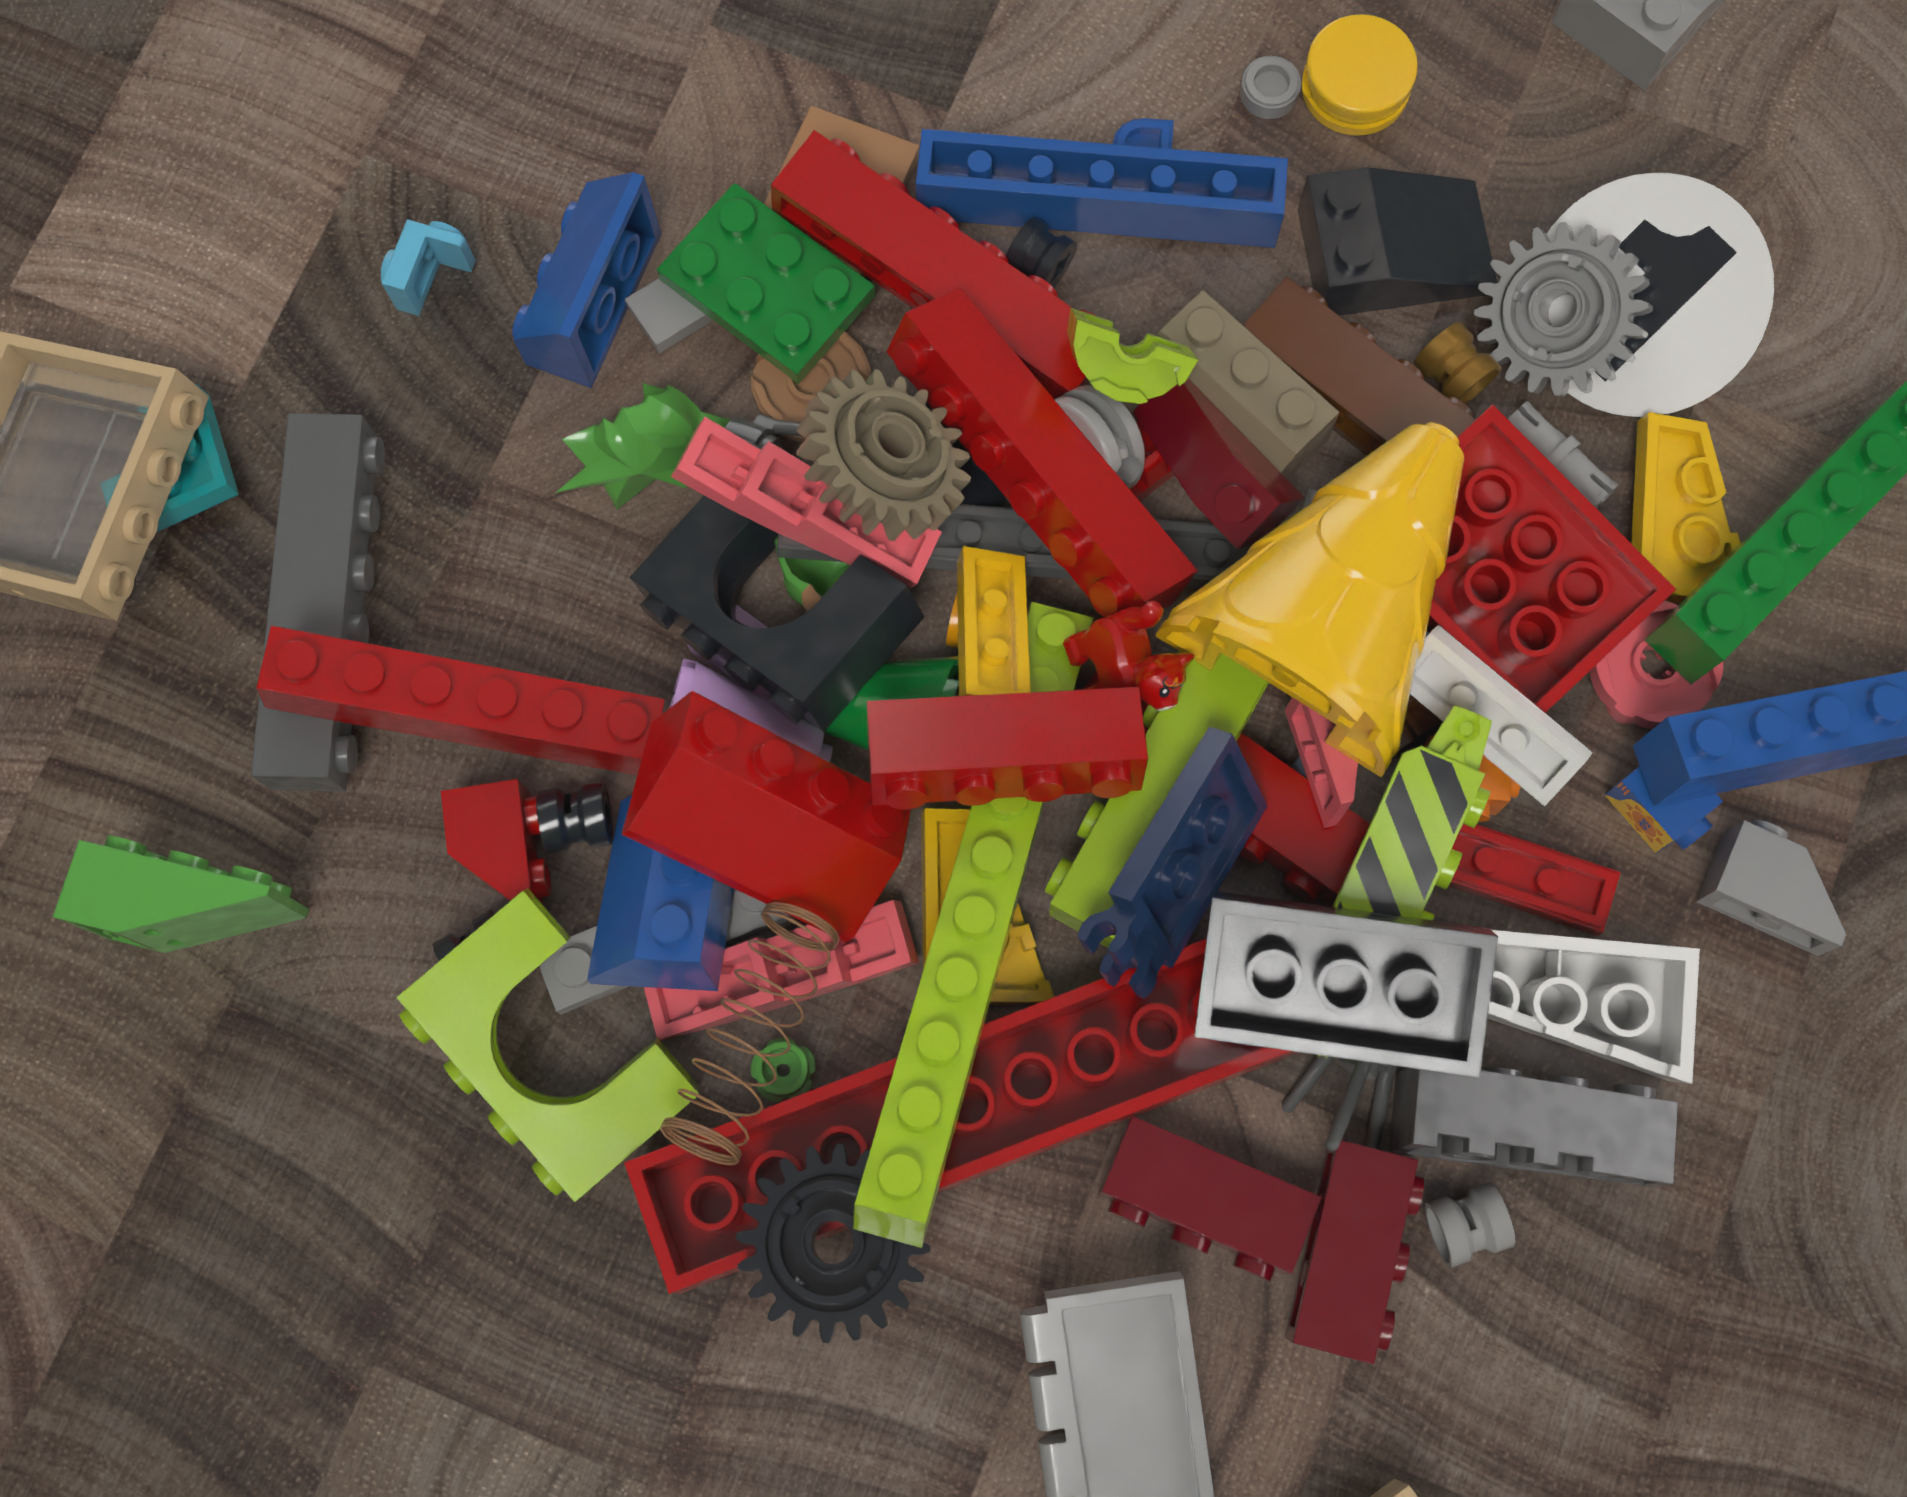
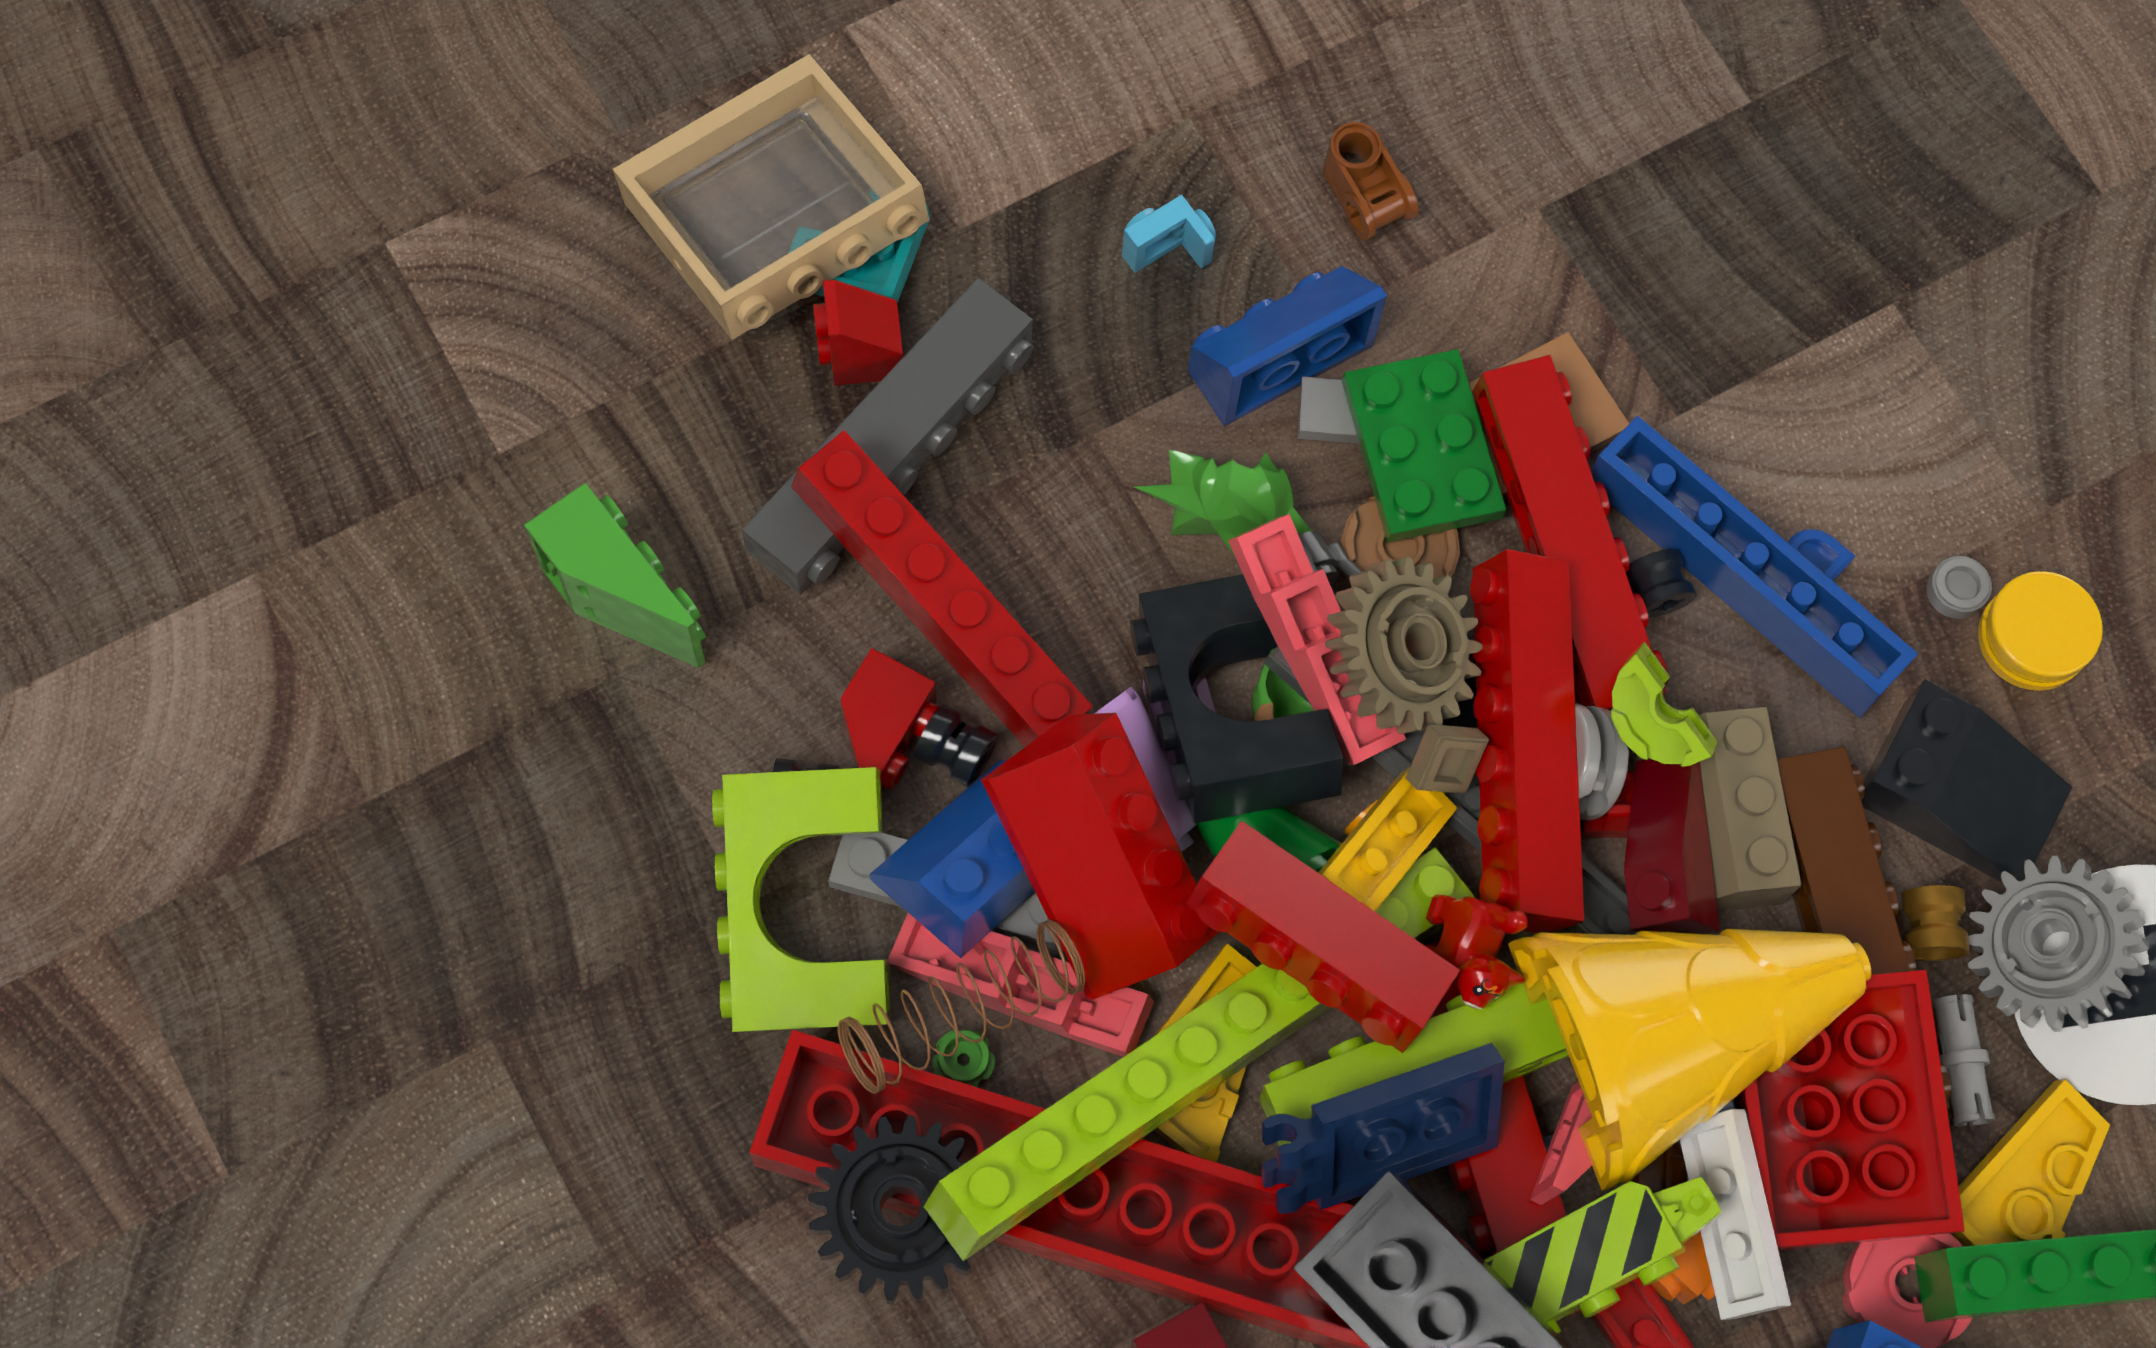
camera: 30 degrees right, 5 degrees down
(220, 536) = (857, 333): none -> red slope
(561, 105) = (1372, 190): none -> dark orange piece
(988, 522) = (1447, 758): none -> dark tan tile

